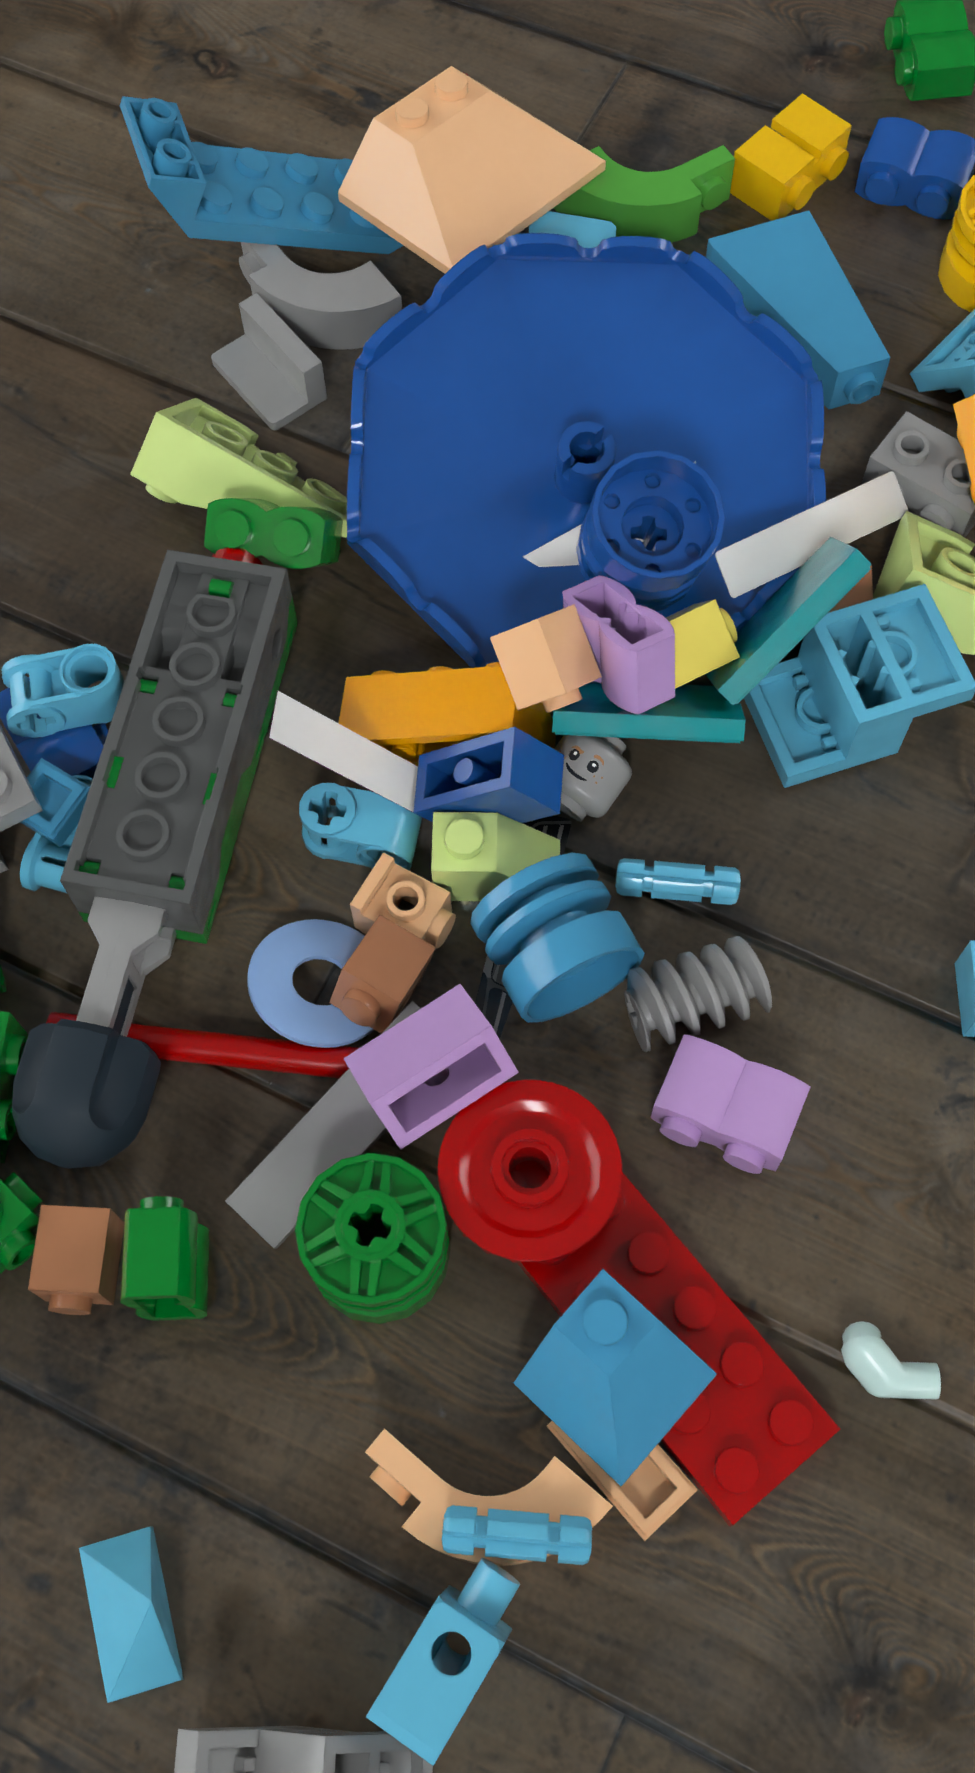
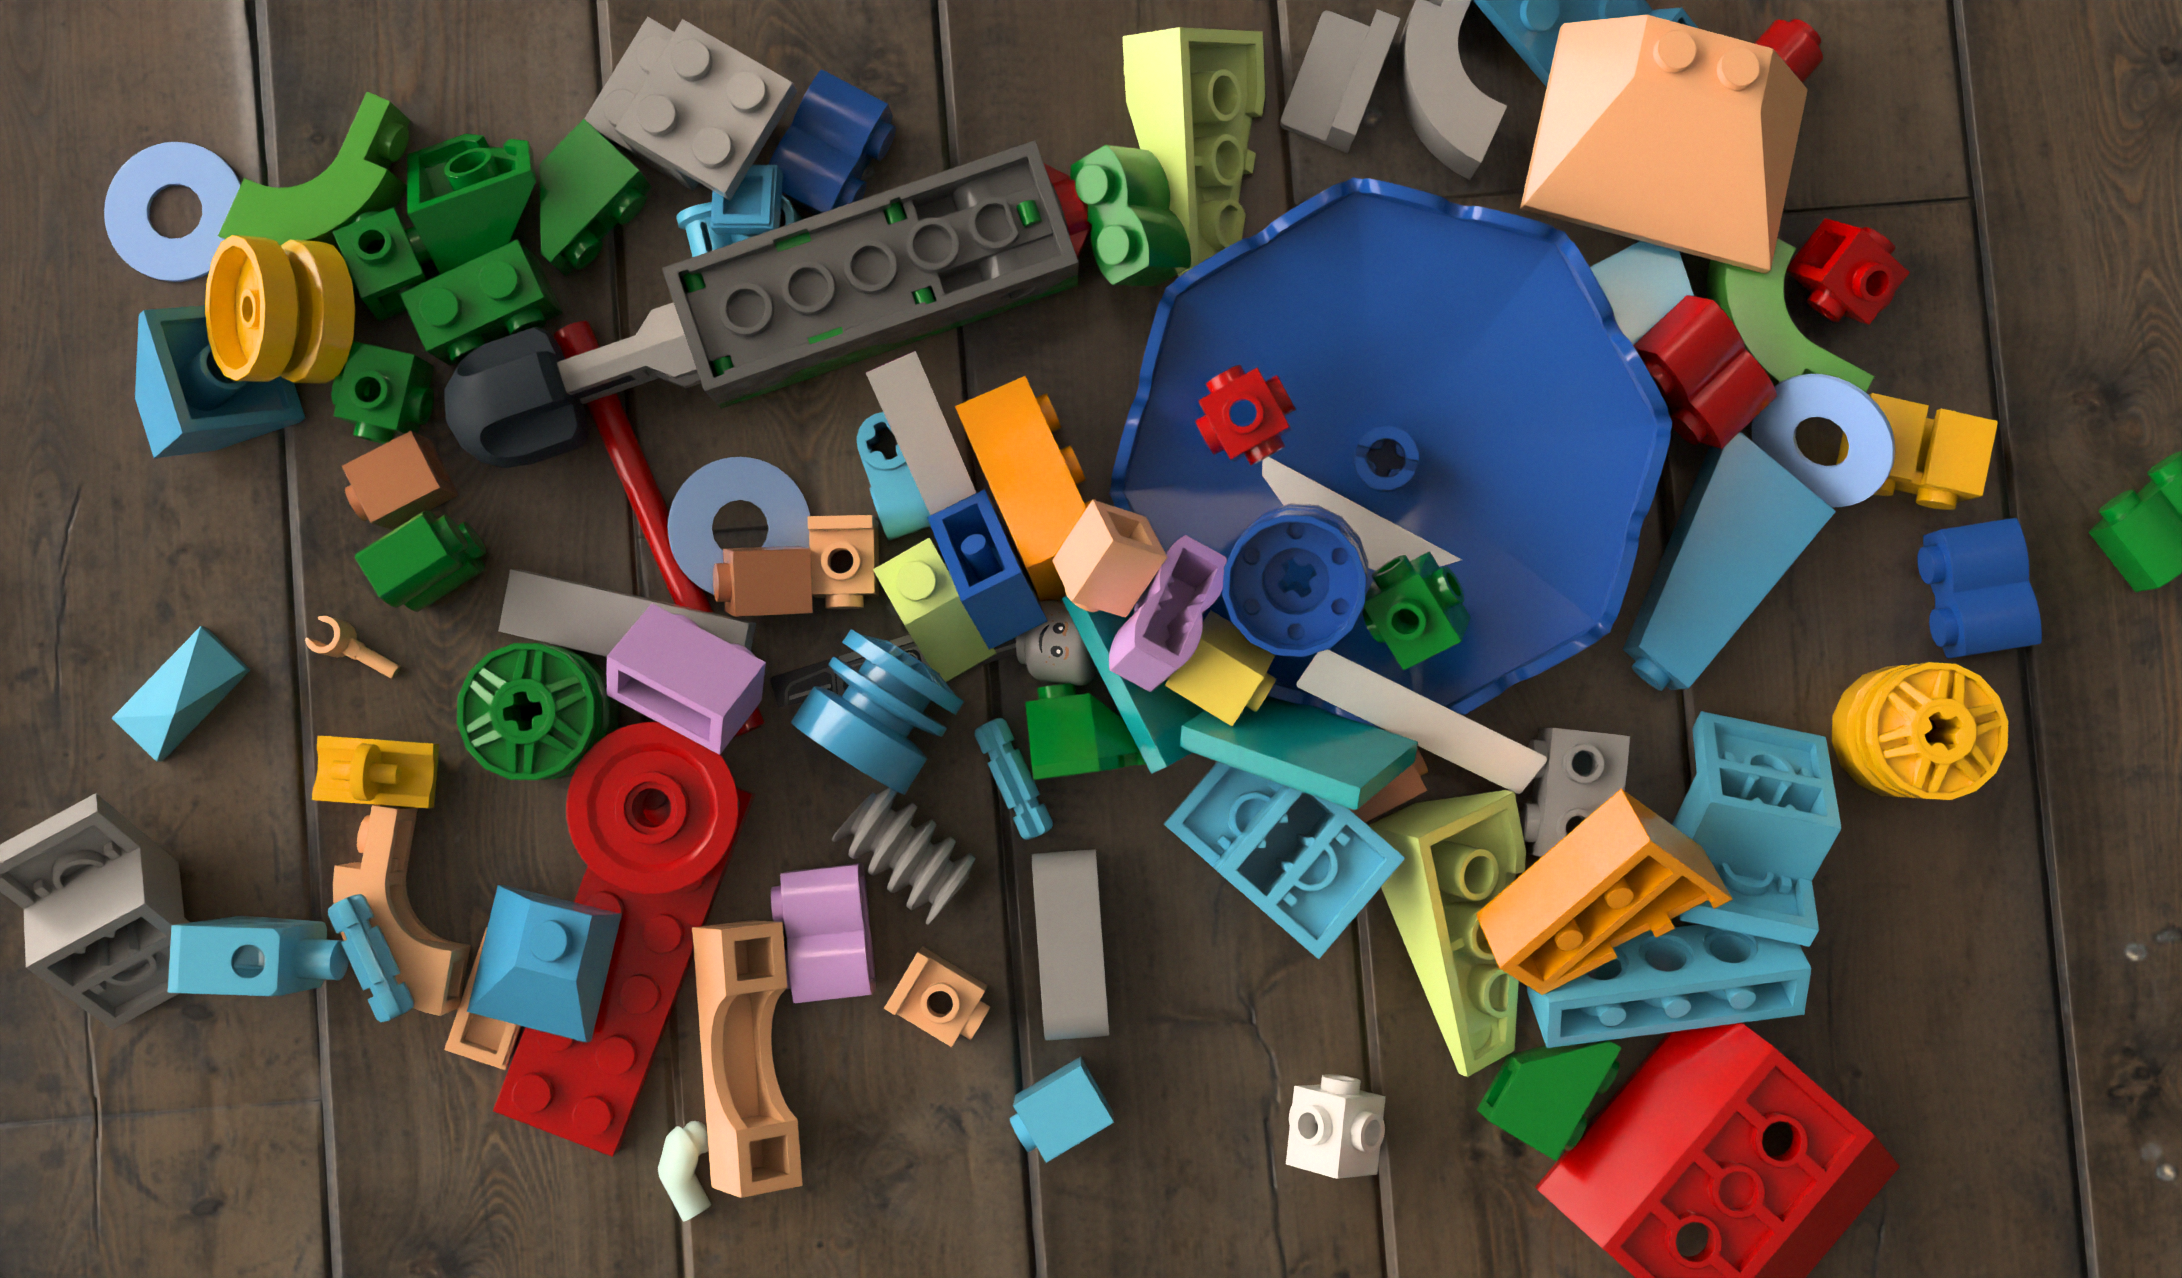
camera: 55 degrees right, 20 degrees up
(61, 691) = (843, 132): medium azure piece -> none
(199, 1404) = (346, 644): none -> light nougat hand
(332, 1438) = (376, 772): none -> yellow hips
(492, 507) = (1257, 439): none -> red brick
(636, 129) = (1848, 271): none -> red brick
(638, 210) = (1705, 372): none -> red brick
(672, 801) = (1076, 734): none -> green slope
(734, 461) = (1415, 608): none -> green brick
(744, 154) = (1858, 415): none -> light blue gear
(827, 1056) = (932, 974): none -> light nougat brick
(853, 907) = (1070, 945): none -> light grey beam
(881, 1270) = (748, 1122): none -> light nougat arch

